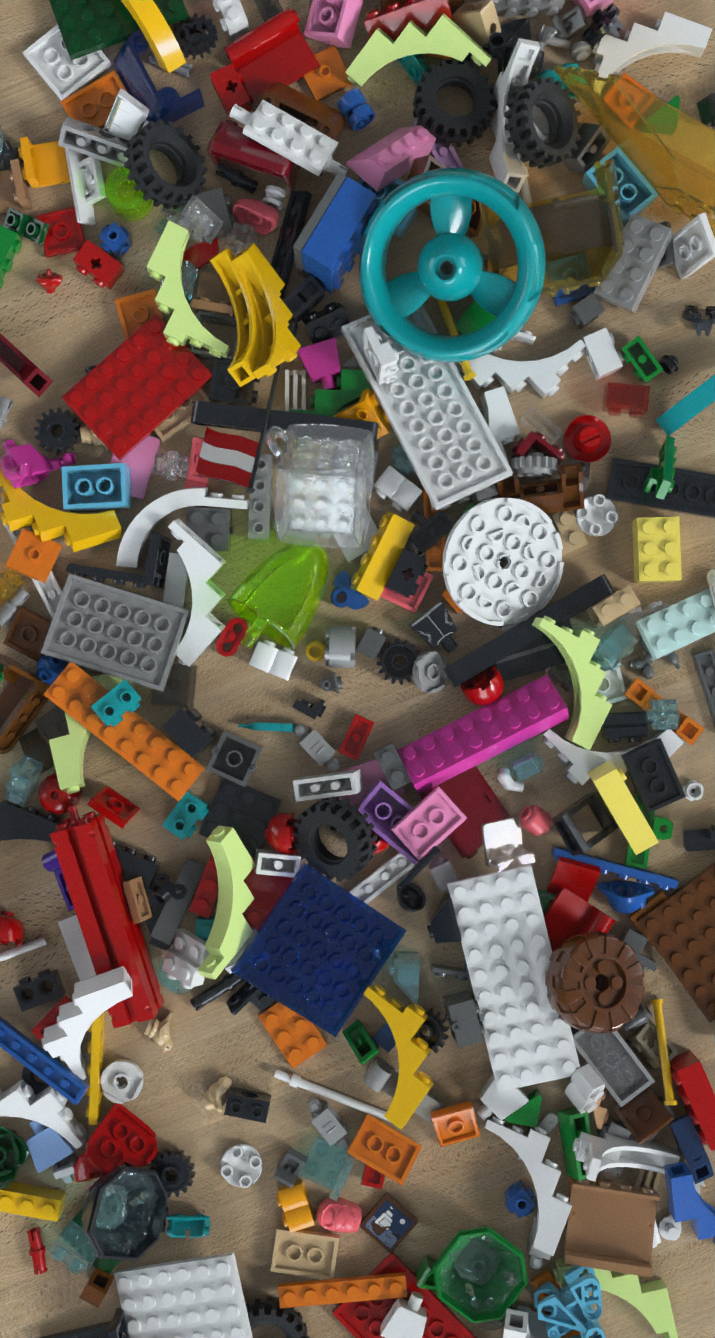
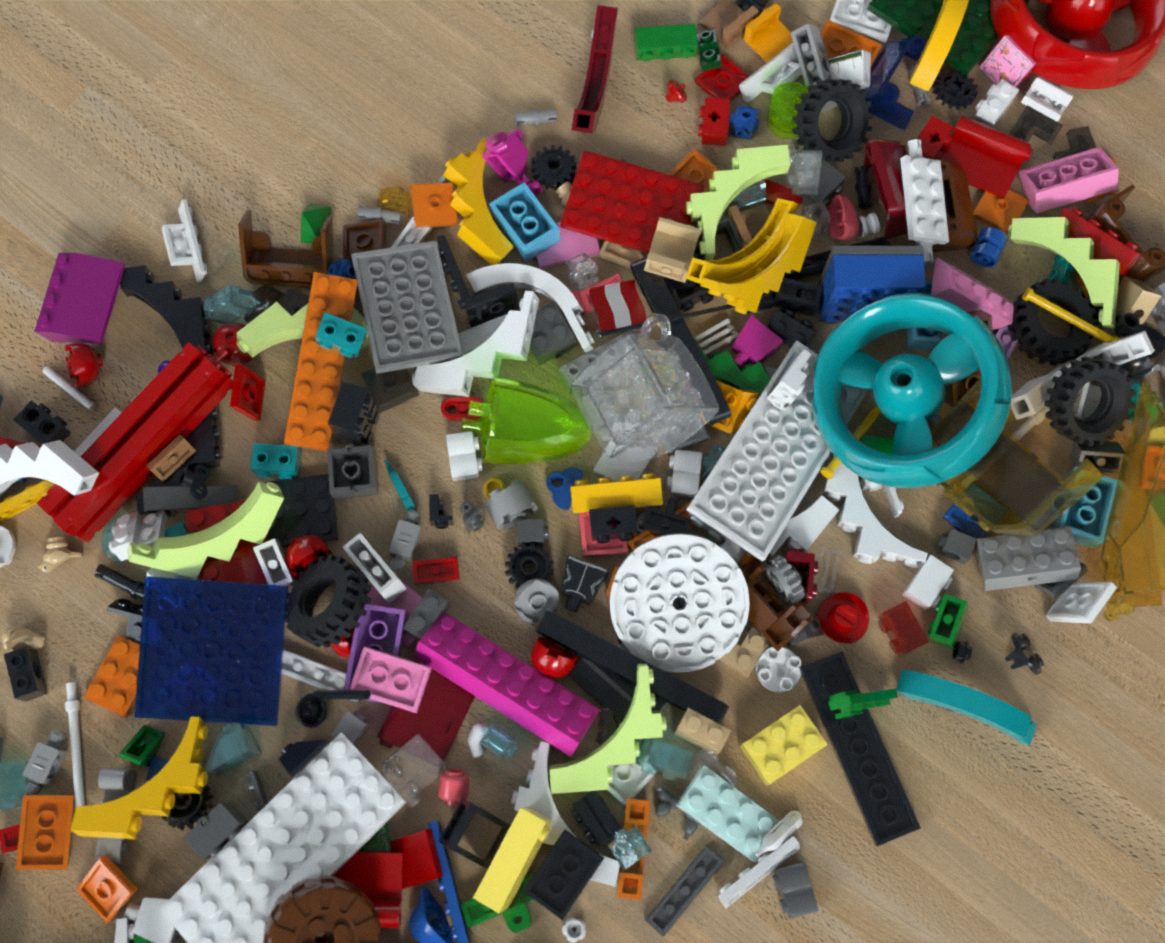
camera: 55 degrees right, 15 degrees down
(202, 380) = (672, 249): none -> tan panel
(425, 108) = (1069, 317): none -> yellow bar

